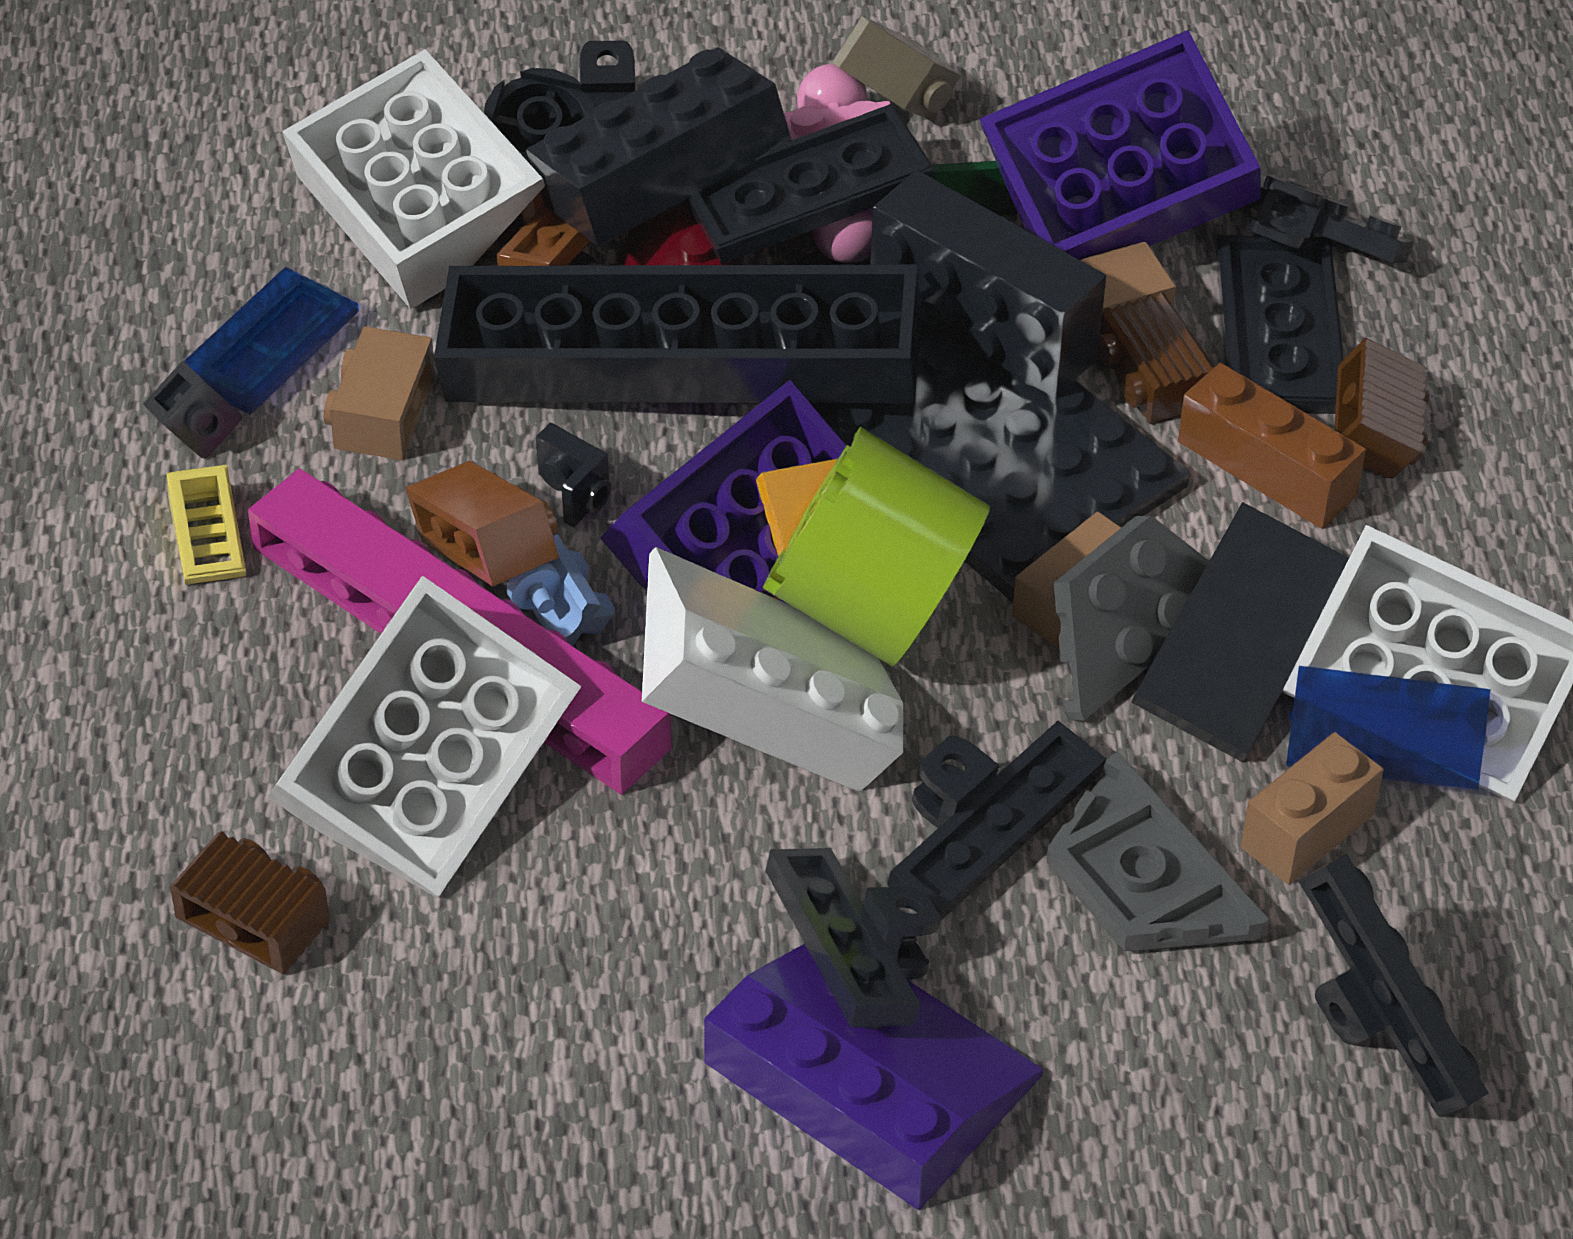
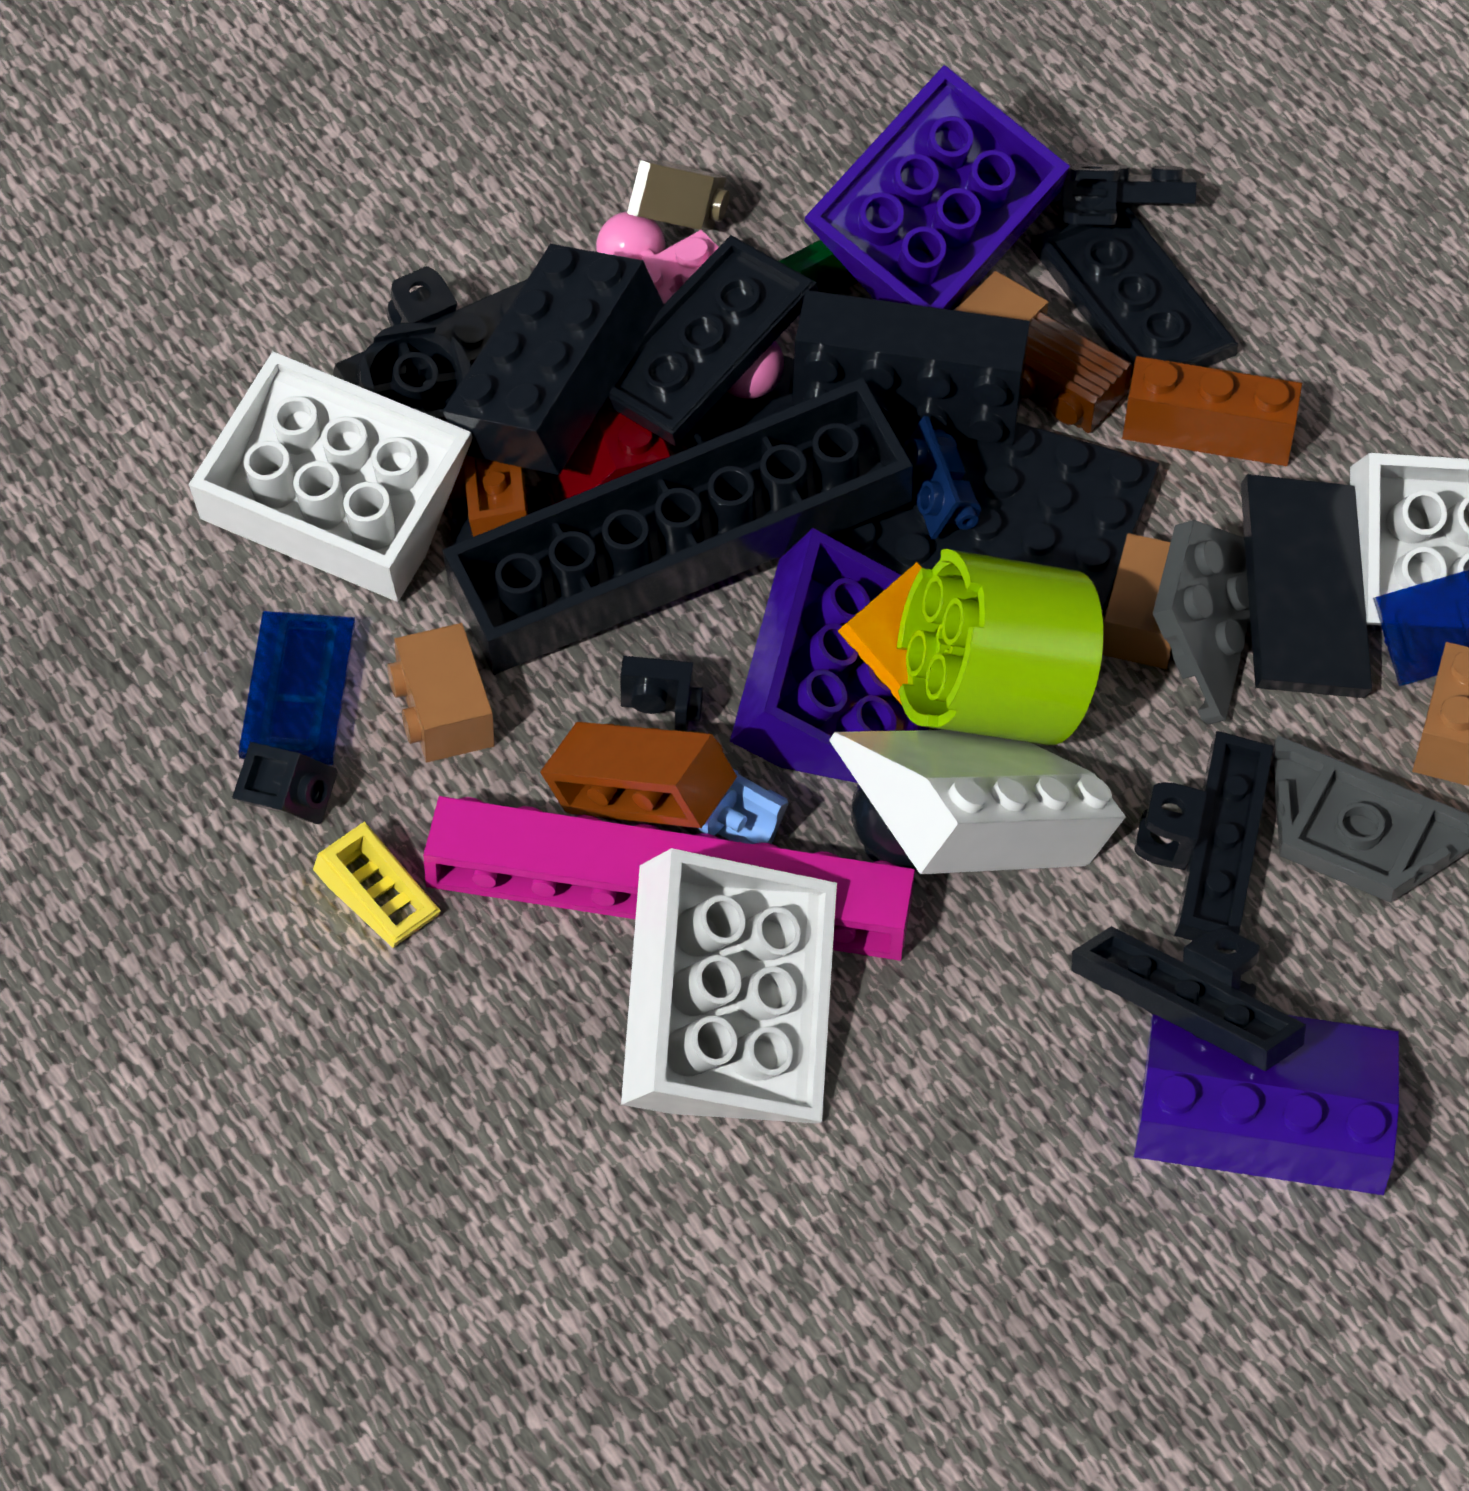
camera: 30 degrees left, 5 degrees up
(251, 901) = (680, 1202): reddish brown brick -> none
(949, 407) = (934, 468): none -> dark blue hinge
(1382, 406) = (1274, 336): reddish brown brick -> none

